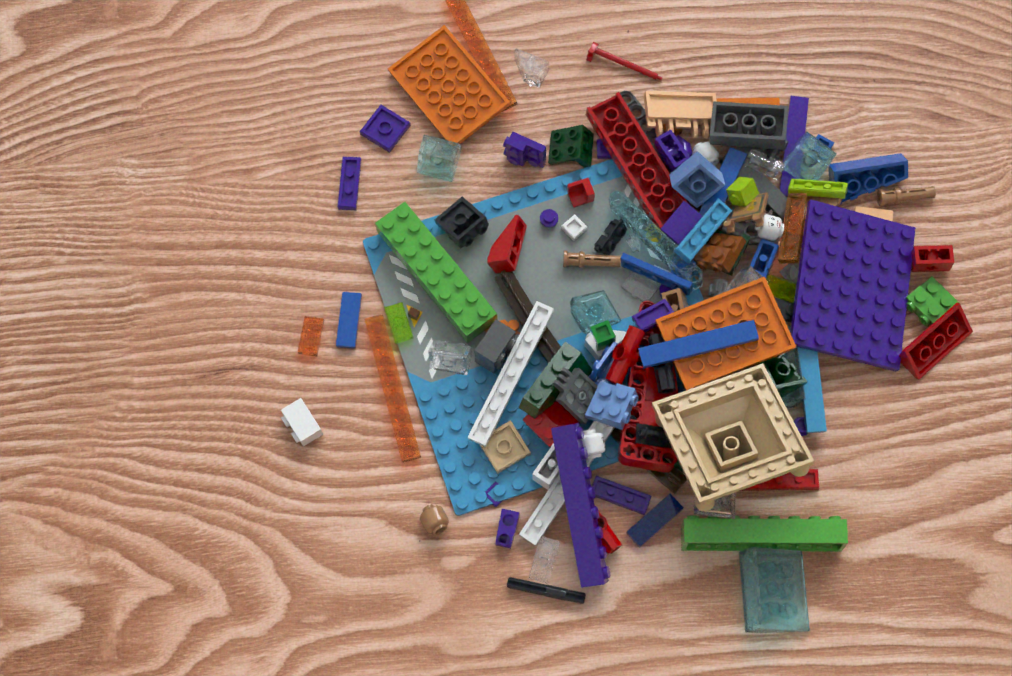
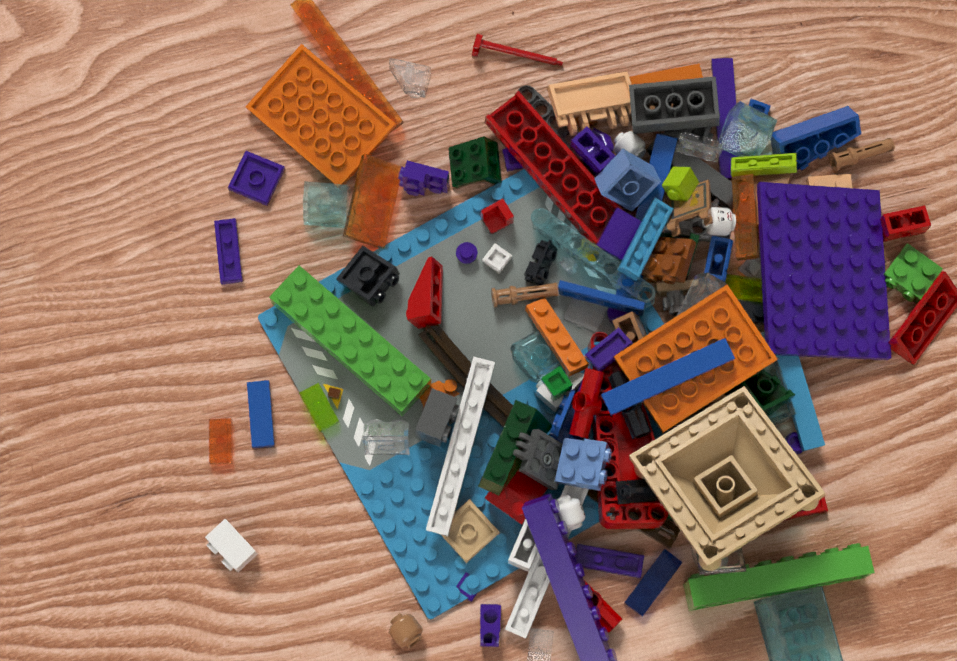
camera: 15 degrees left, 5 degrees up
(392, 388) = (327, 485): clear orange plate -> none
(478, 163) = (372, 202): none -> clear orange plate
(611, 299) = (557, 337): none -> orange plate
(710, 276) = (662, 288): none -> tan tile

